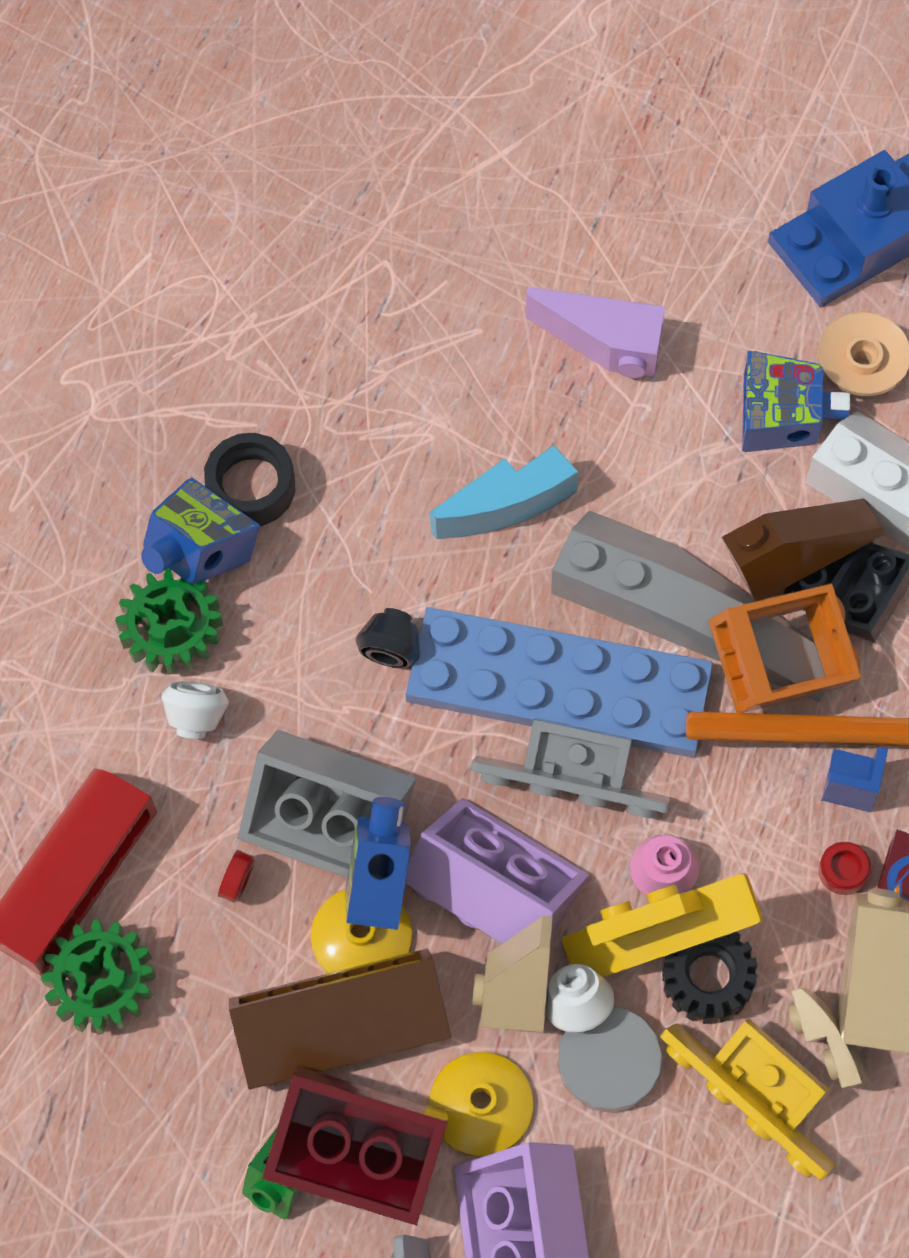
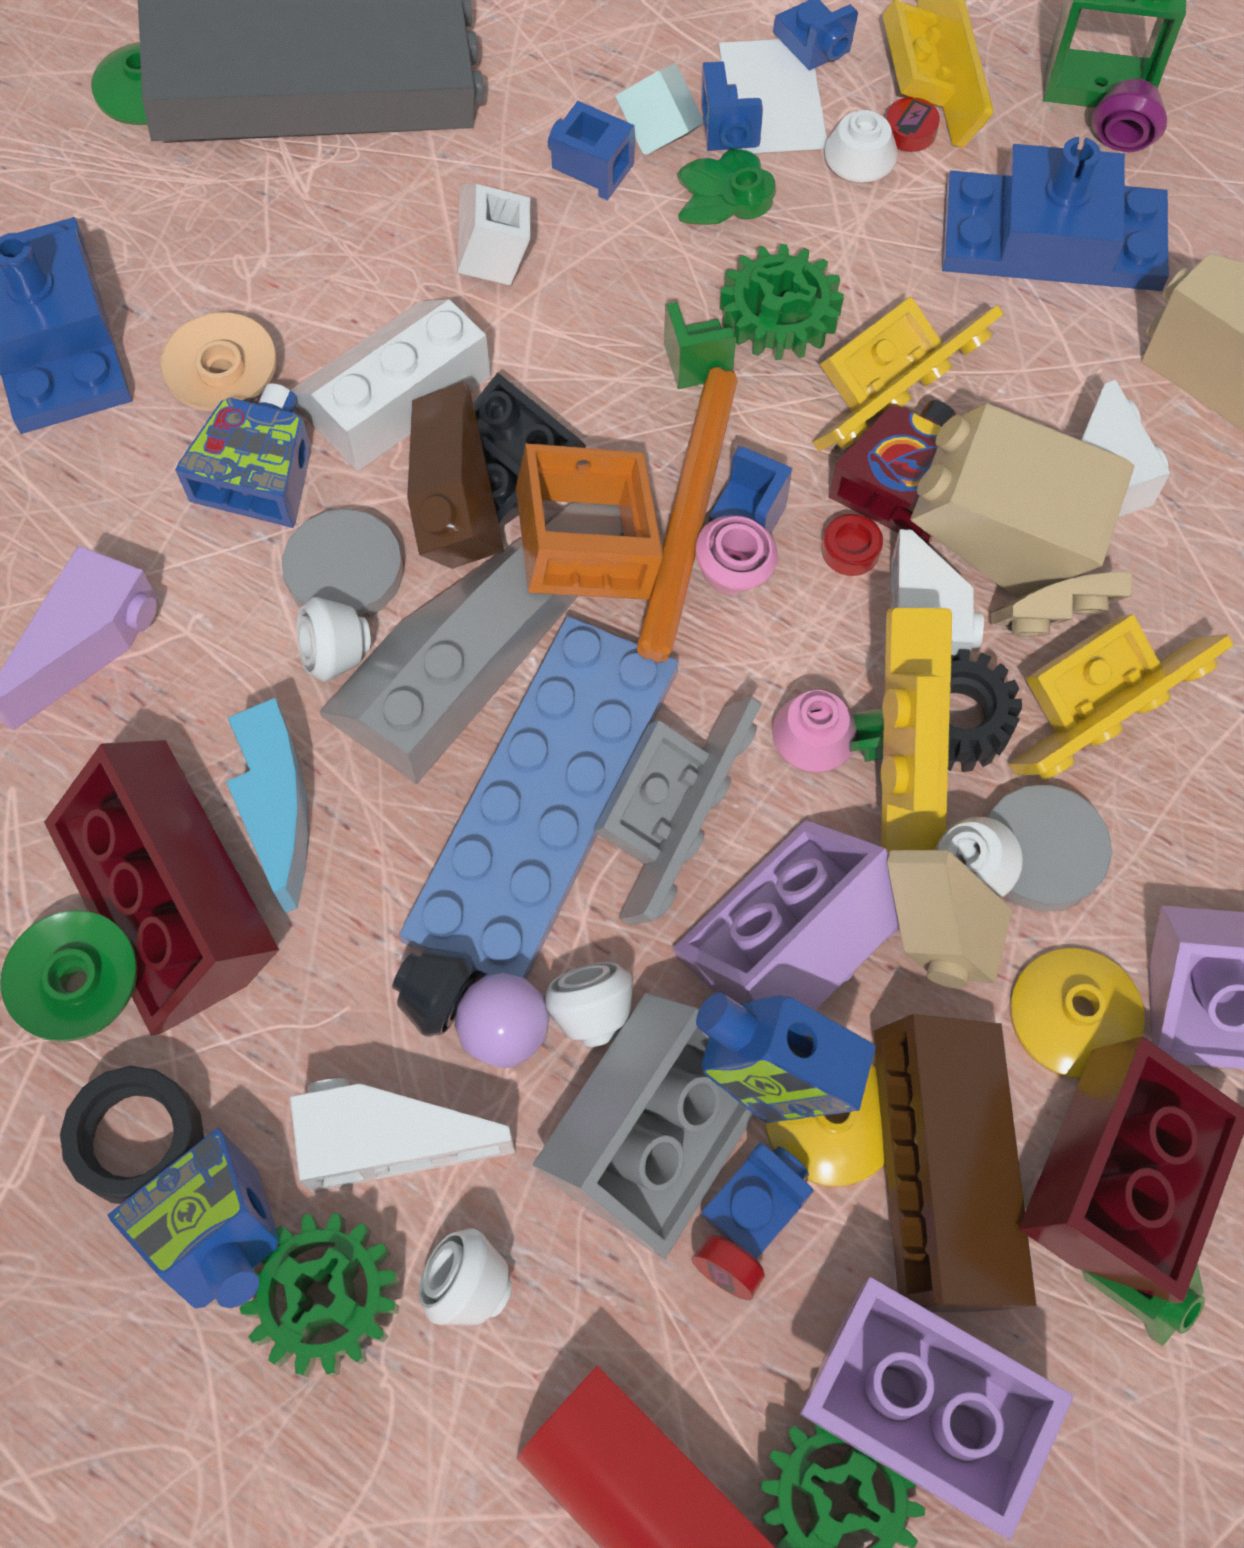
camera: 80 degrees left, 0 degrees up
(162, 1019) = (937, 1406): none -> lavender slope
(280, 623) = (371, 1134): none -> white slope
(287, 891) = (759, 1199): none -> blue bracket
(342, 390) = (48, 956): none -> green dish
(375, 686) = (502, 1020): none -> lavender piece
(404, 743) = (591, 1002): none -> white cone
(429, 442) = (162, 877): none -> dark red slope
(644, 499) = (330, 638): none -> white cone
(714, 492) = (345, 560): none -> light grey tile
(794, 932) = (928, 581): none -> white slope
(801, 758) = (735, 554): none -> bright pink cone

